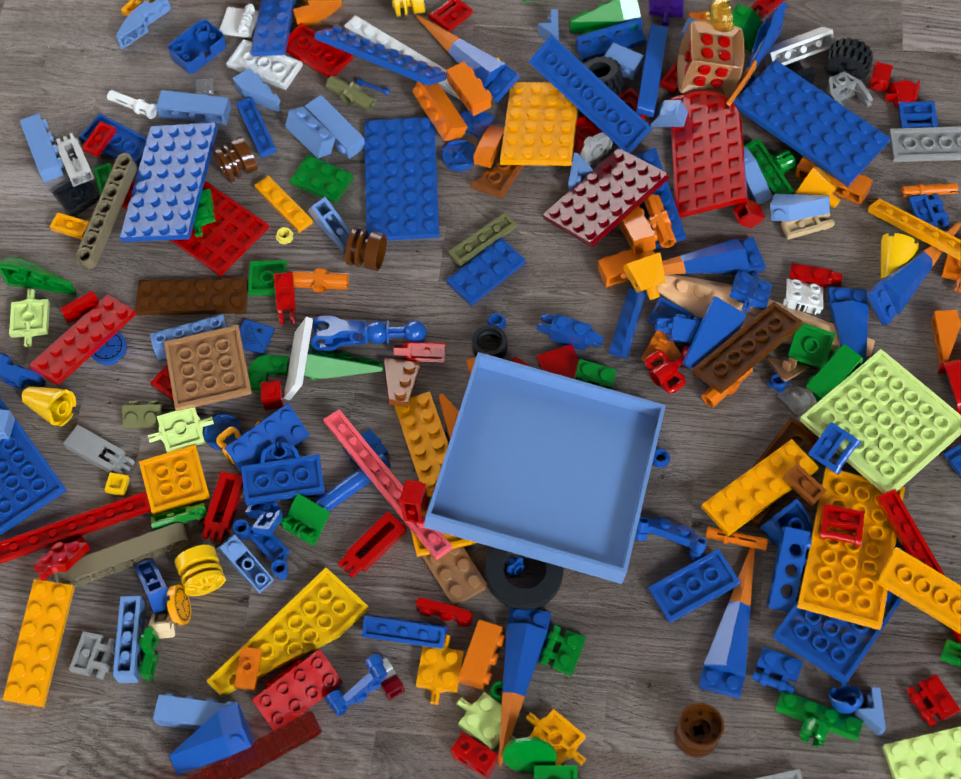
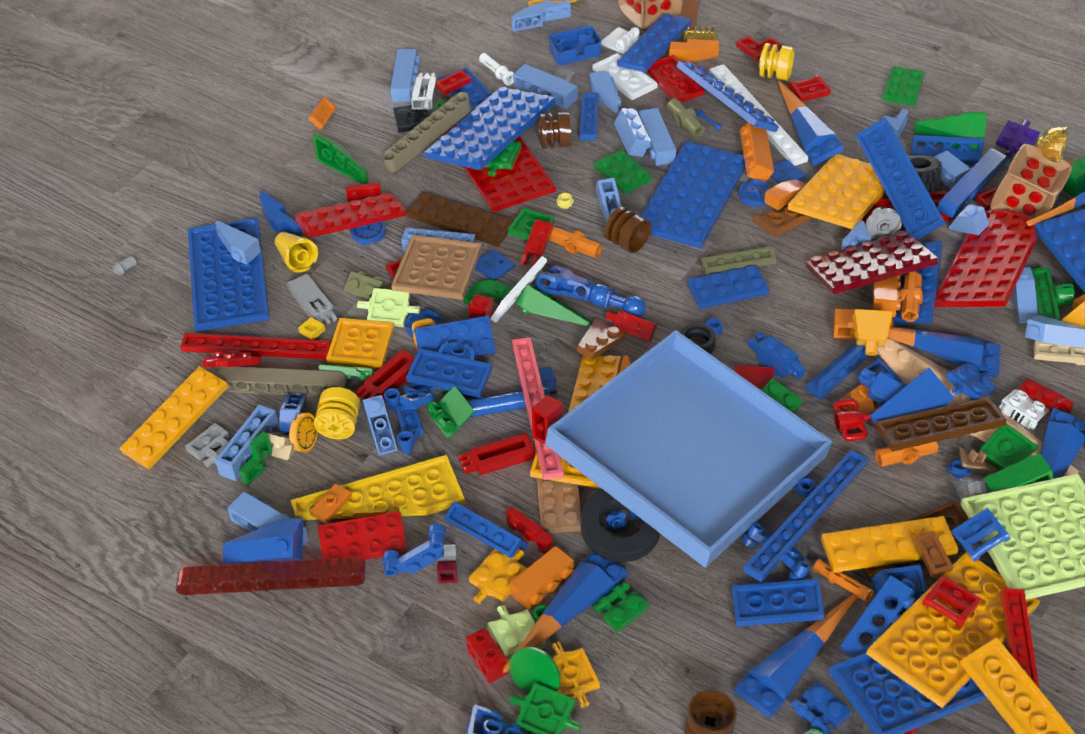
camera: 25 degrees right, 15 degrees down
(29, 318) = (318, 187): yellowish green plate -> none
(69, 225) = (389, 133): light orange plate -> none
(283, 204) = (578, 179): light orange plate -> none
(469, 88) = (791, 142): orange brick -> none
(678, 491) = (805, 516): none -> blue plate
(748, 214) = (1004, 322): red brick -> none

